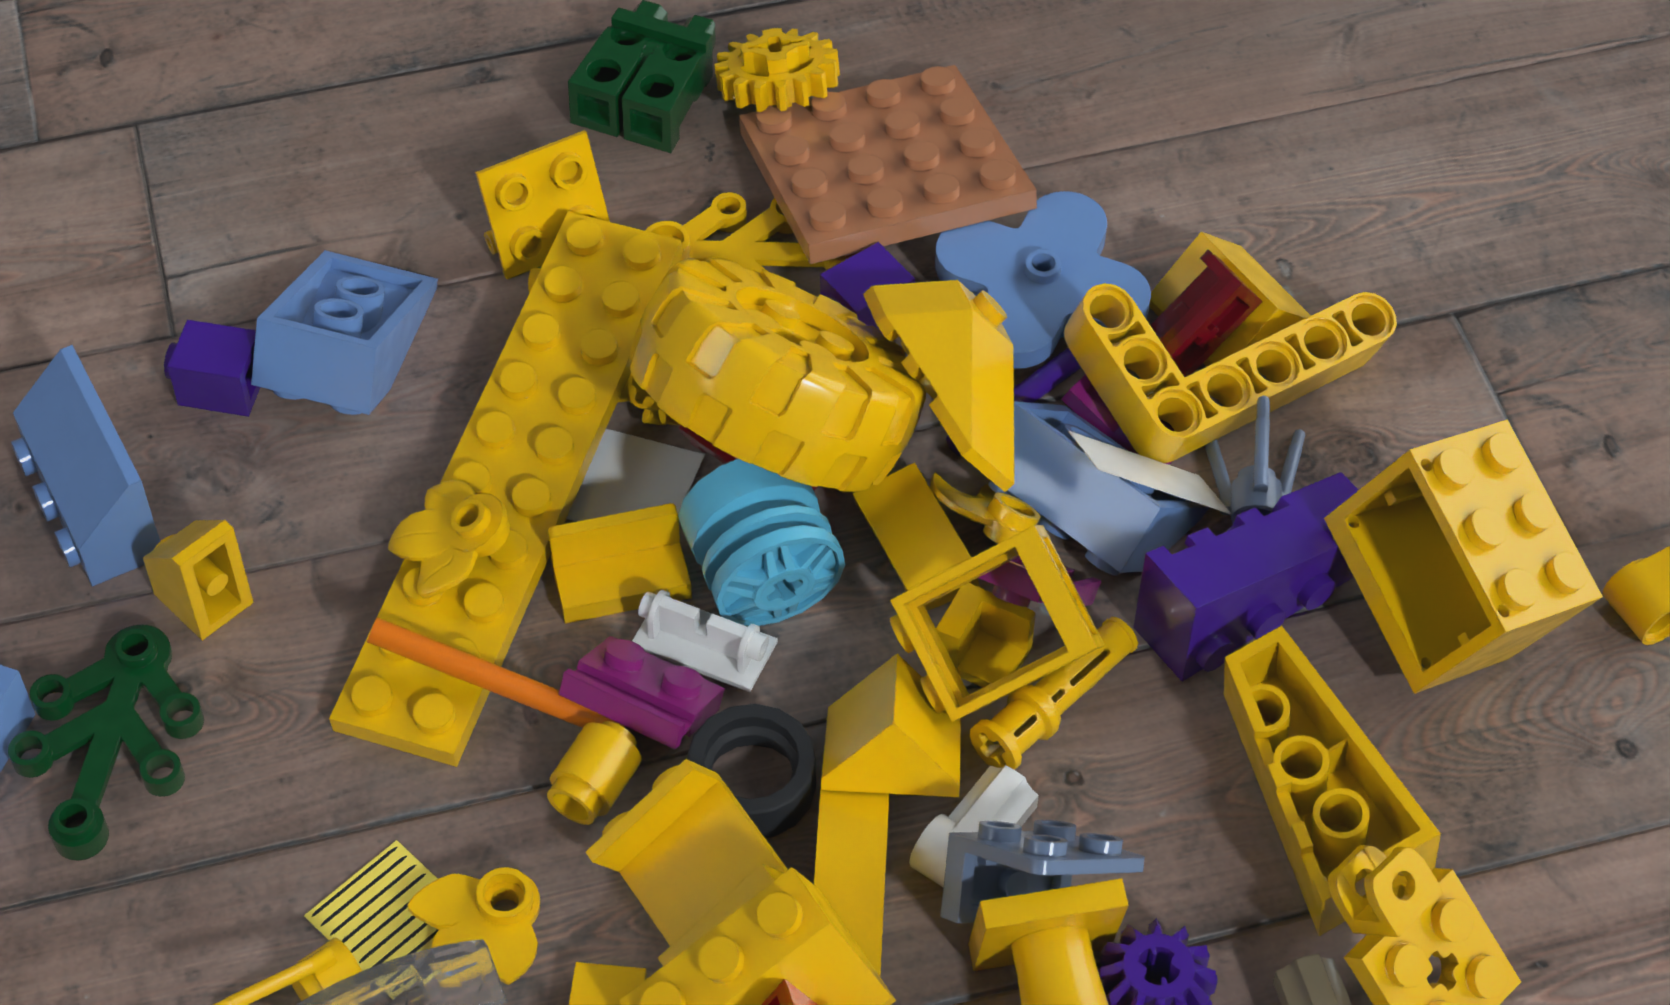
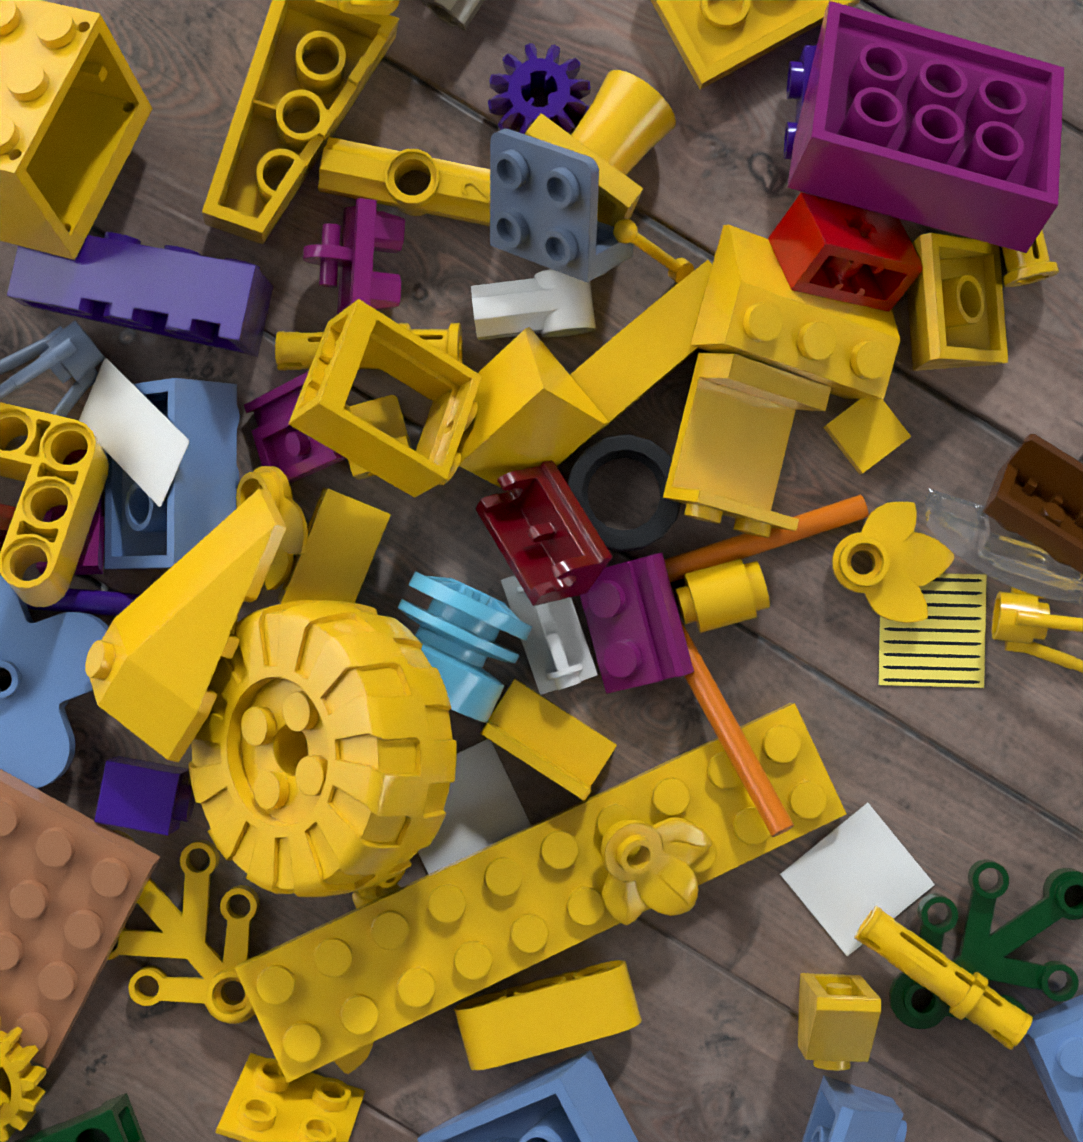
camera: 130 degrees left, 35 degrees up
(52, 670) = (954, 985): none -> yellow pin
(271, 698) = (852, 873): none -> white sticker
(422, 411) = (547, 1015): none -> yellow beam
(591, 875) = (748, 545): none -> orange bar
(780, 668) = (544, 534): none -> dark red hinge
(963, 905) = (627, 232): none -> yellow hinge
(1161, 760) = (362, 234): none -> magenta hips
(1197, 805) = (374, 173): none -> yellow piece

